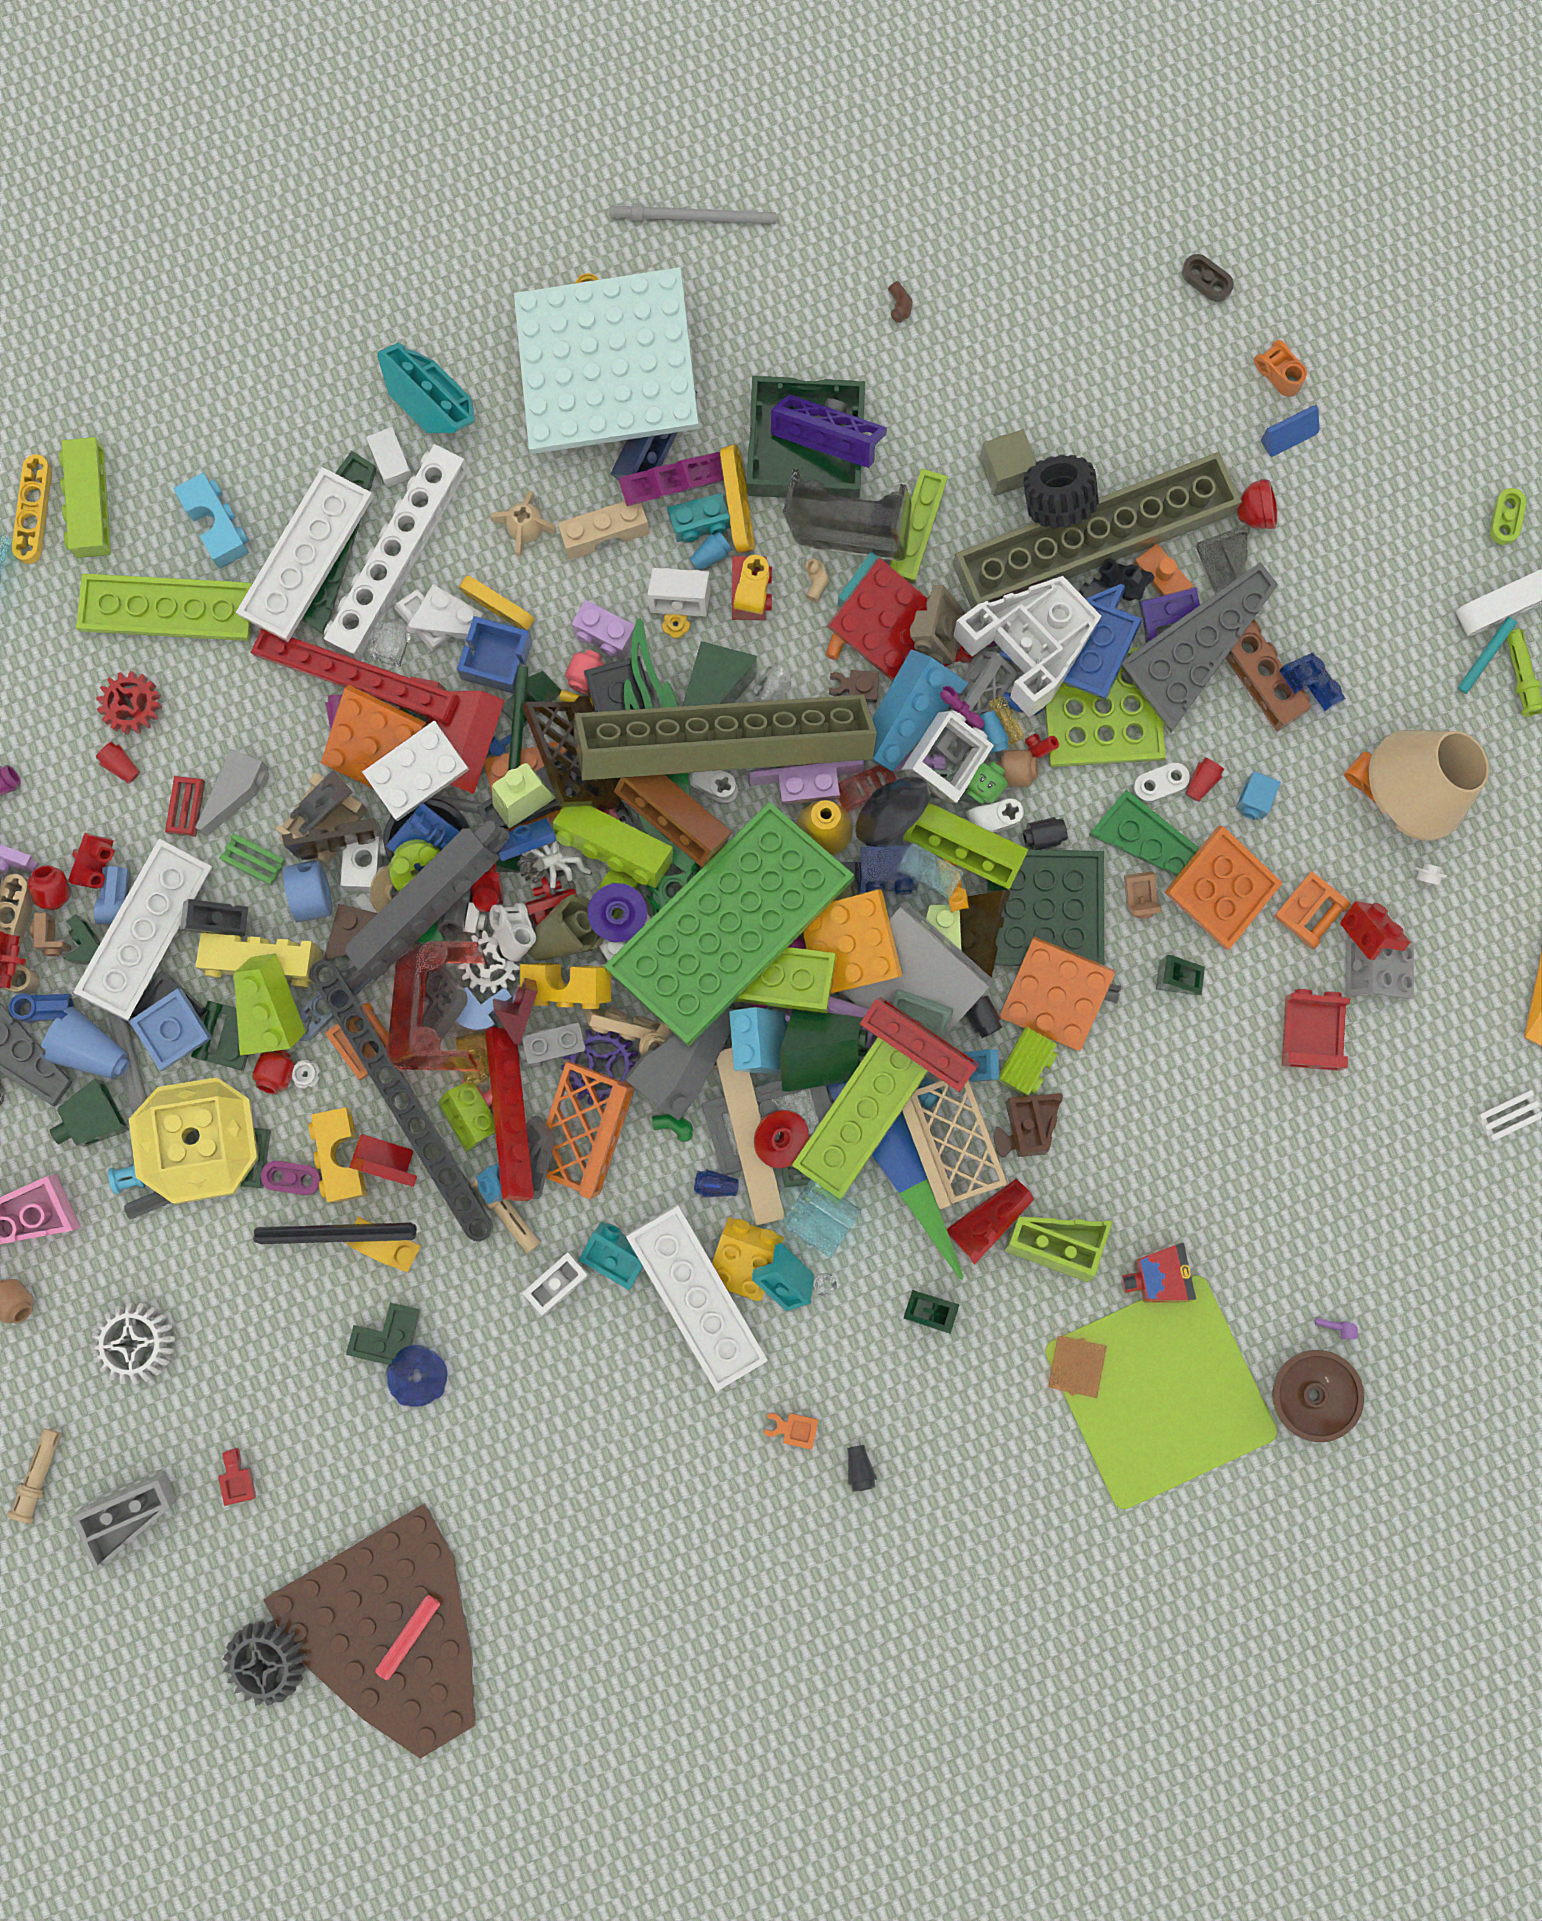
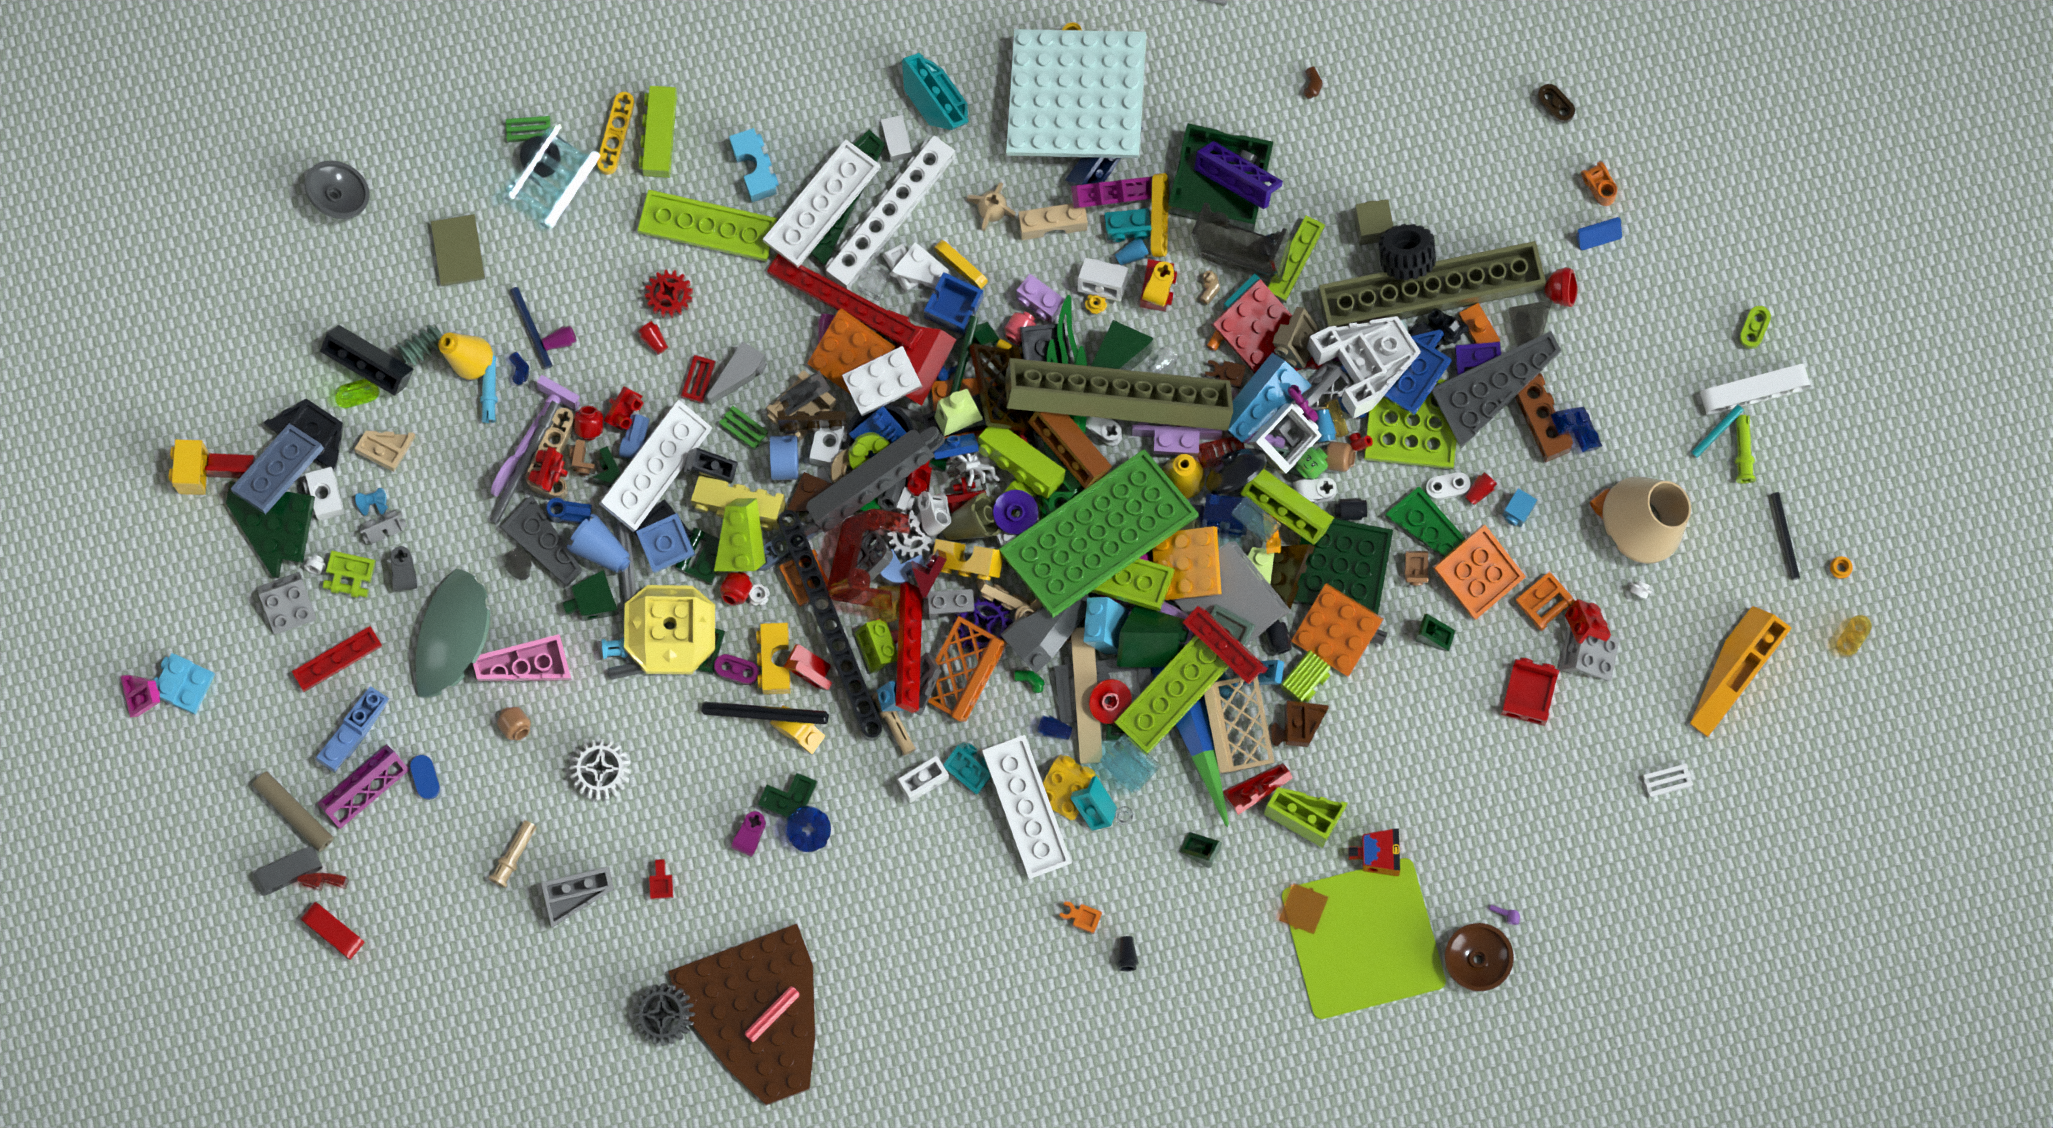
camera: 10 degrees right, 5 degrees down
(341, 1400) = (748, 837): none -> magenta piece

